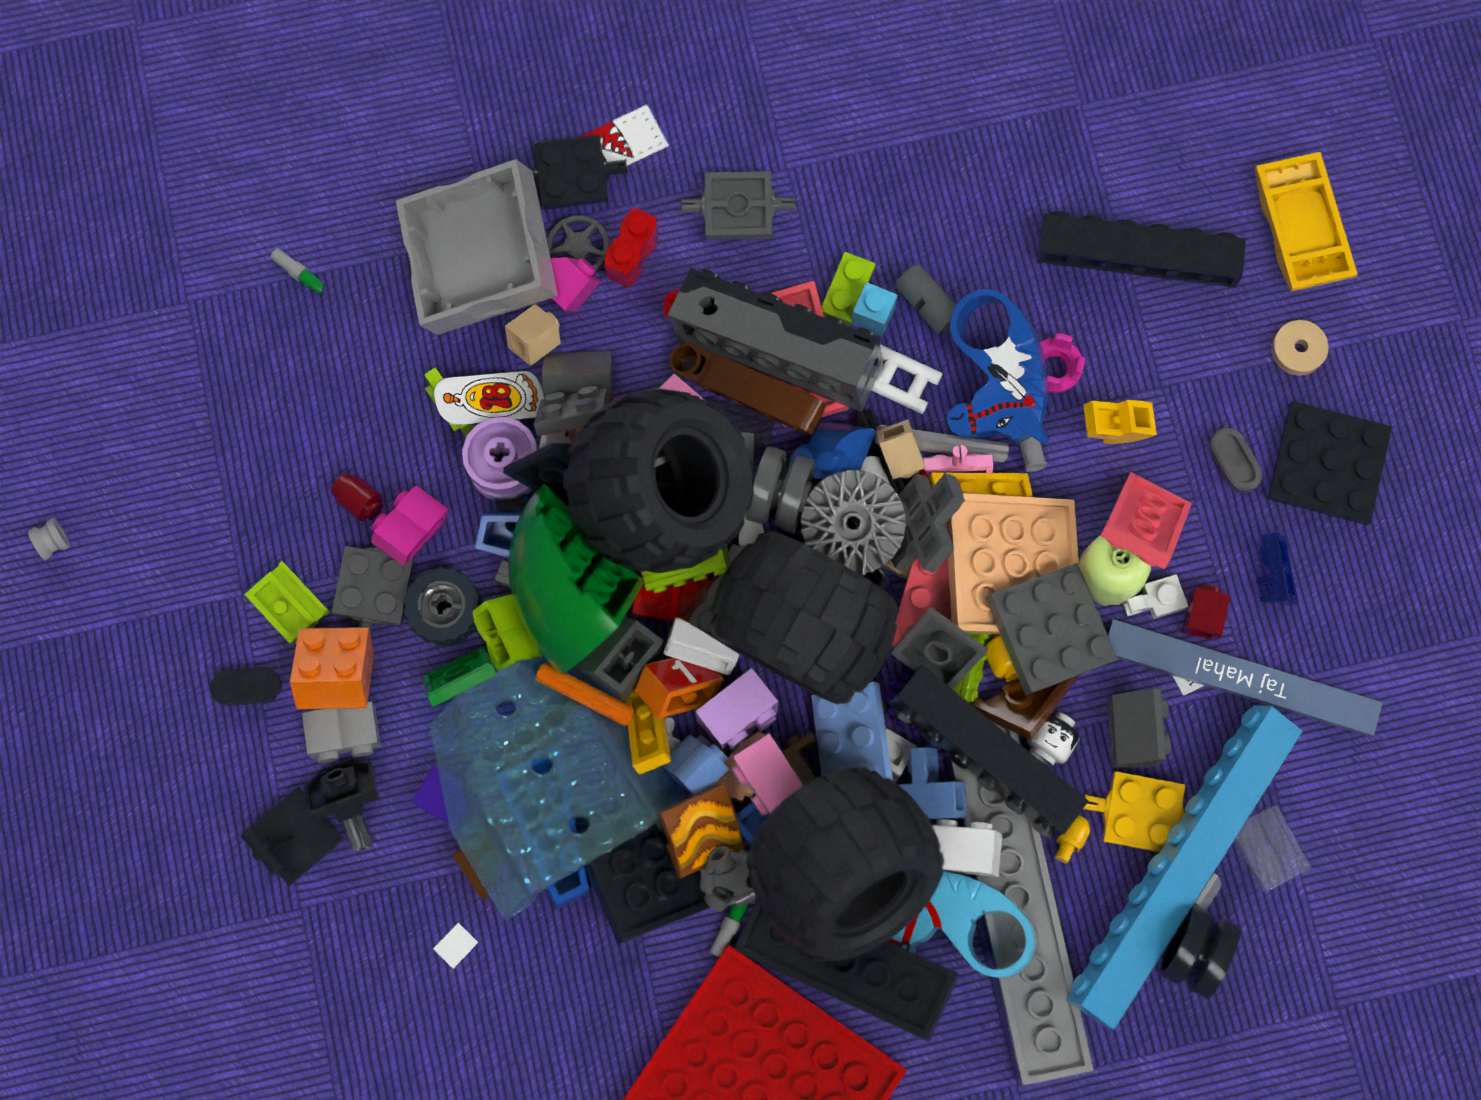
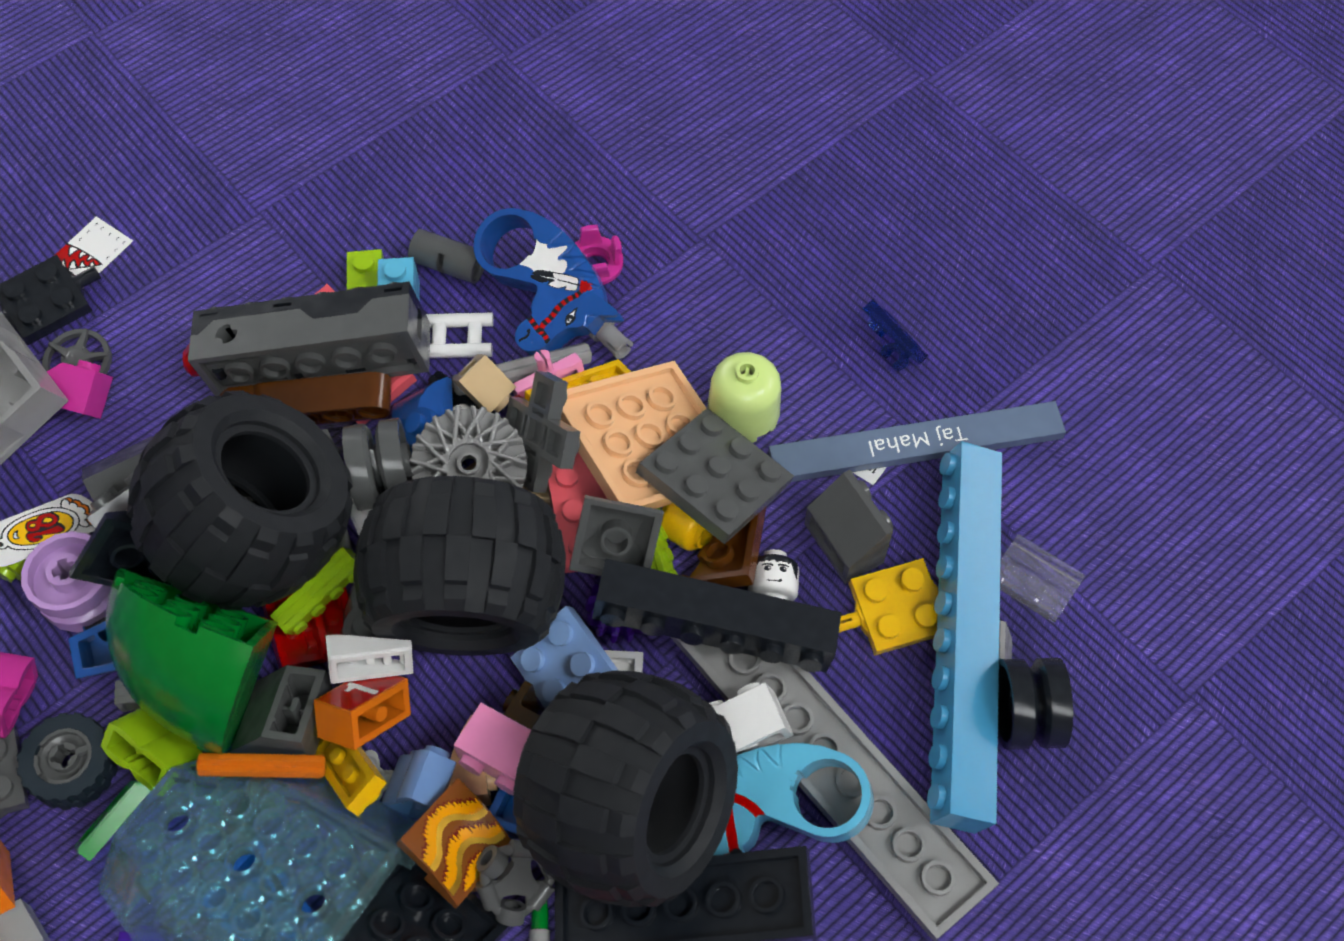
camera: 30 degrees left, 15 degrees down
(533, 334) = (59, 451): tan brick -> none
(634, 244) = (131, 334): red brick -> none
(738, 205) = (223, 257): dark grey plate -> none
(738, 712) = (438, 702): lavender brick -> none
(935, 798) = (697, 676): medium blue brick -> none
(1073, 839) = (845, 665): yellow cylinder -> none
(1120, 421) = (681, 277): yellow brick -> none
(1141, 249) = (619, 137): black brick -> none
(1146, 521) = (752, 335): coral plate -> none
(1159, 597) = (800, 408): white plate -> none
(1206, 612) = (852, 400): dark red brick -> none
(1235, 460) = (801, 266): flat silver tile -> none
(1298, 362) = (804, 167): tan piece -> none
(1304, 222) = (749, 58): yellow slope -> none
(1329, 463) = (885, 232): black plate -> none

